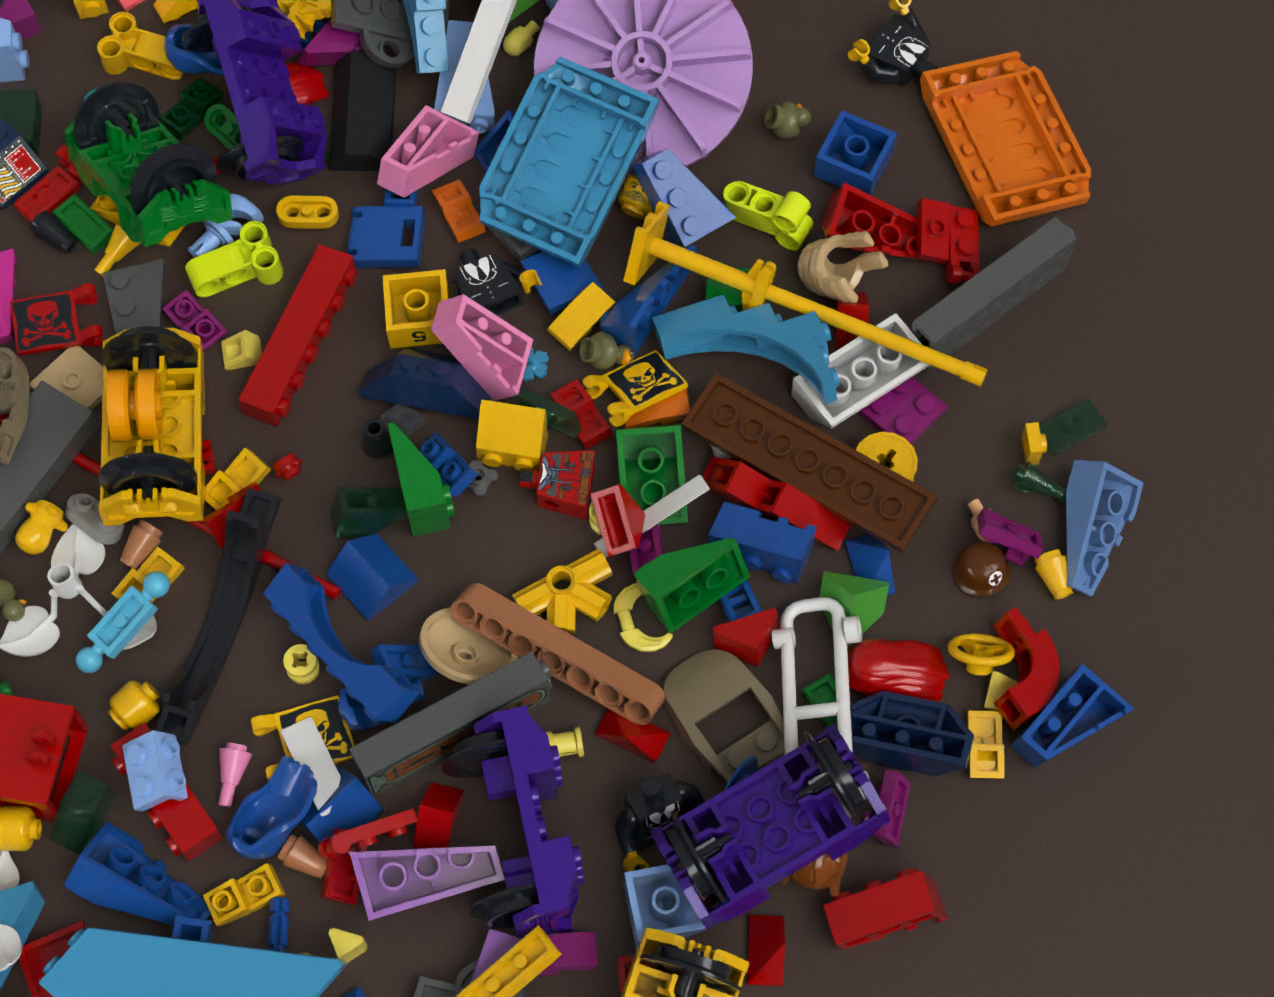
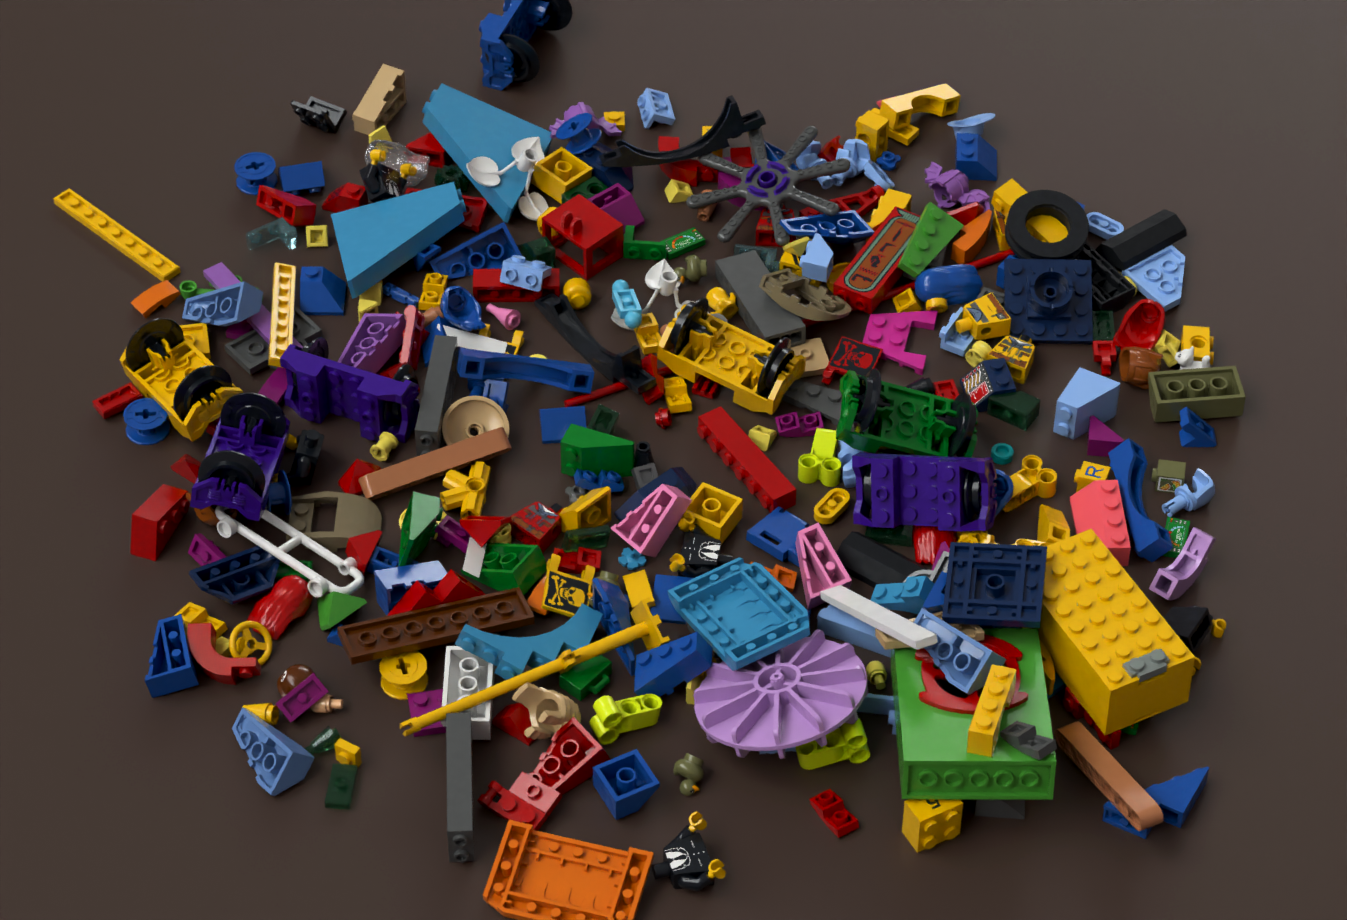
camera: 125 degrees right, 20 degrees down
(132, 405) = (737, 332): light orange wheel -> none

